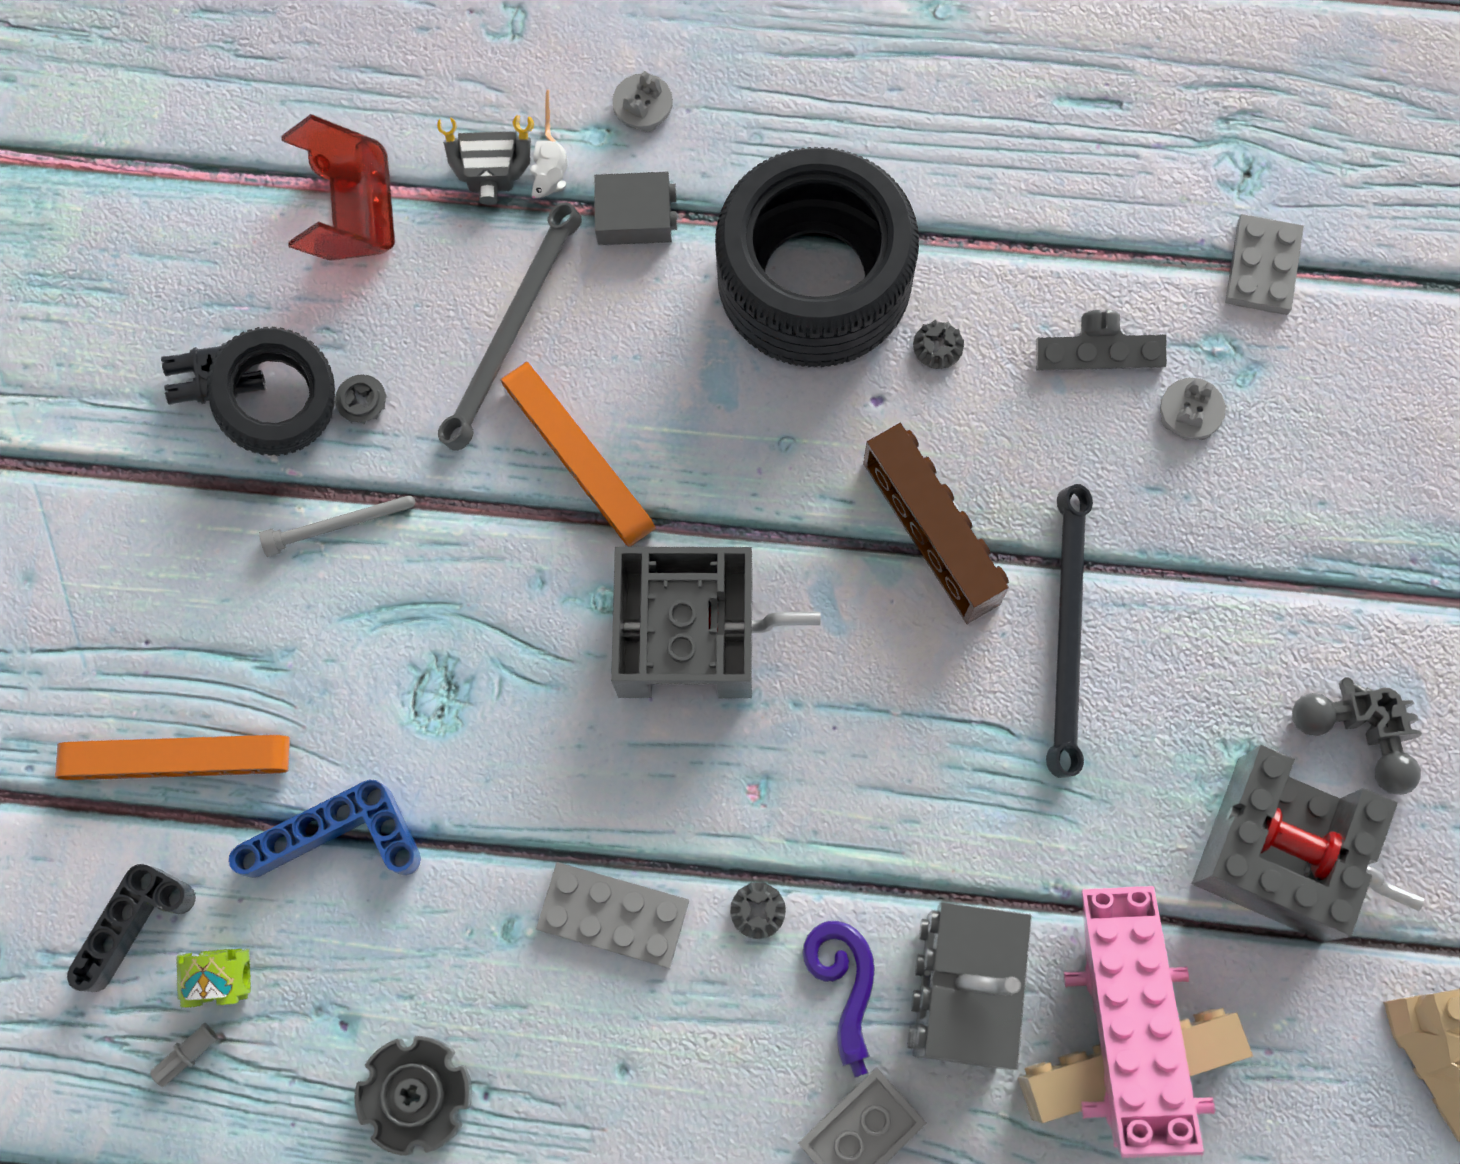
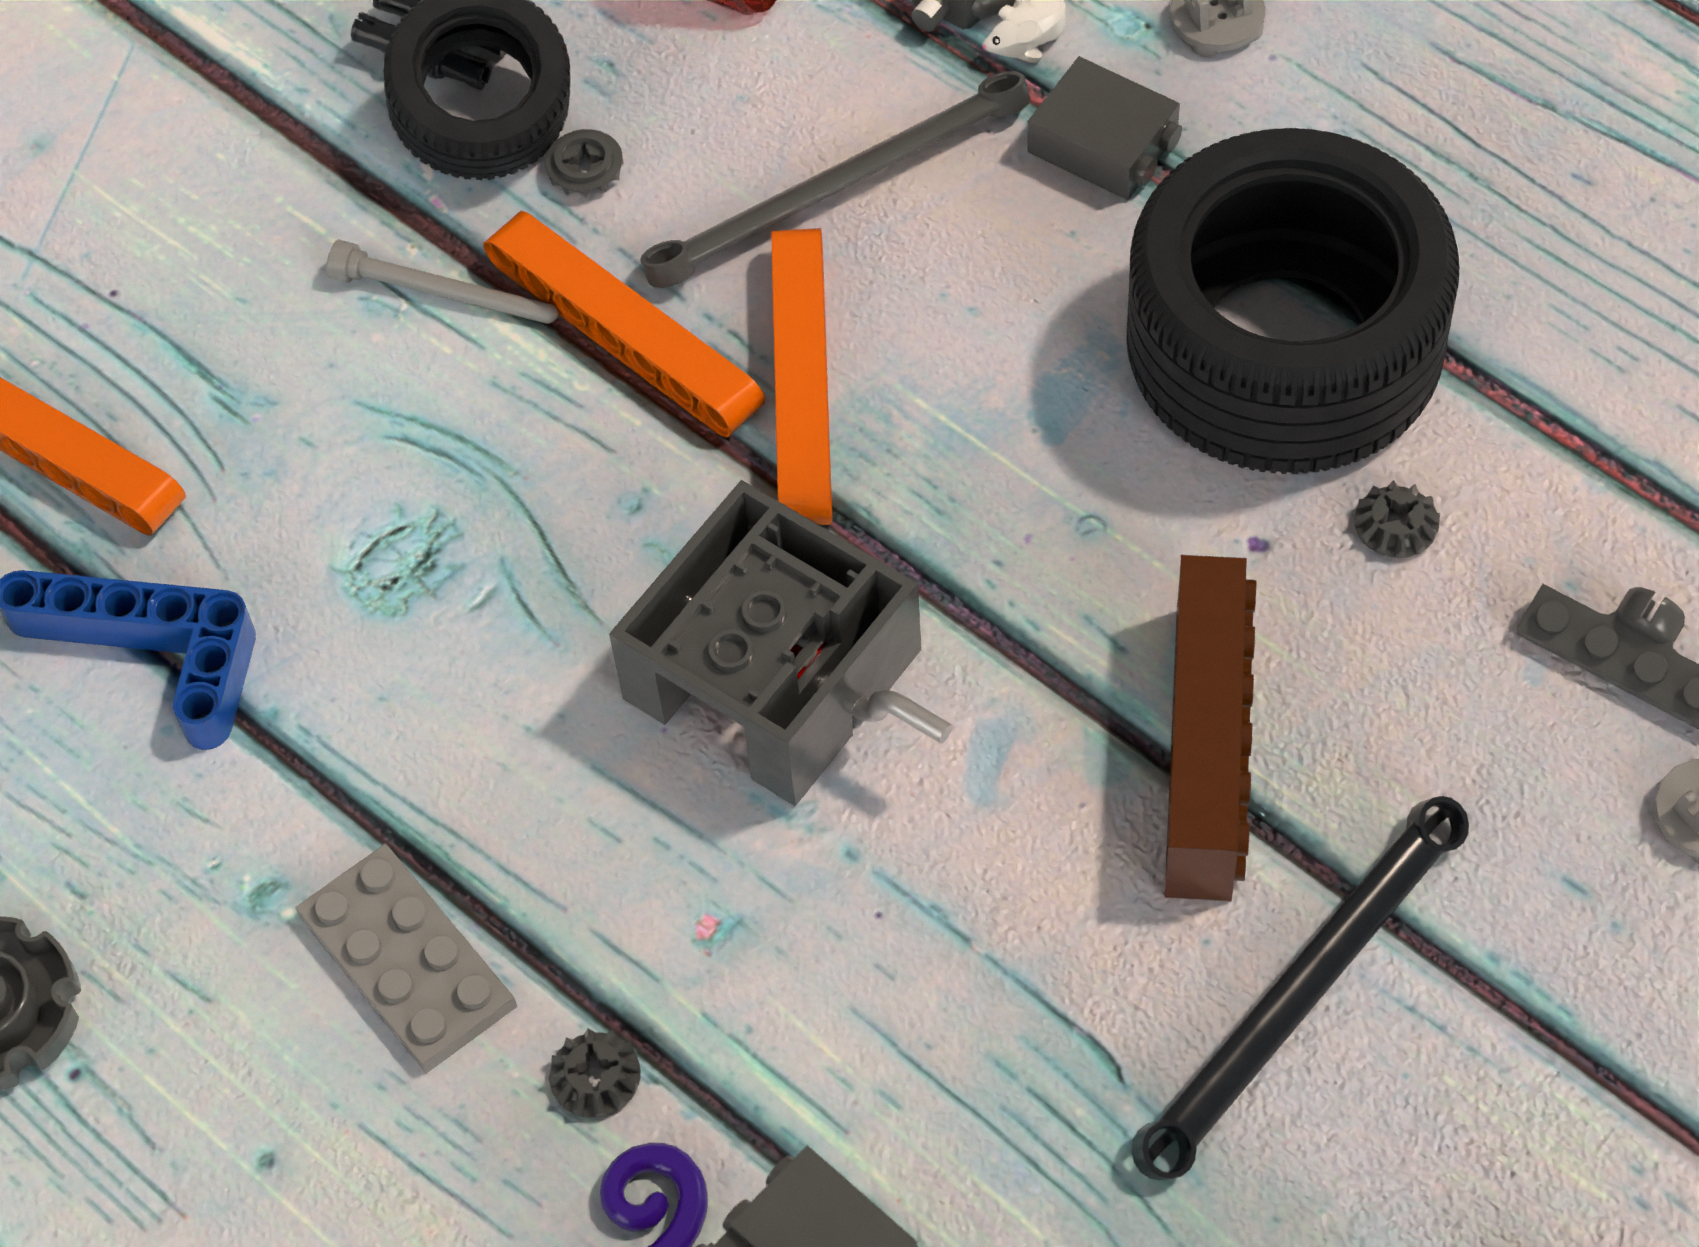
camera: 35 degrees right, 15 degrees down
(456, 482) = (625, 324): none -> orange beam

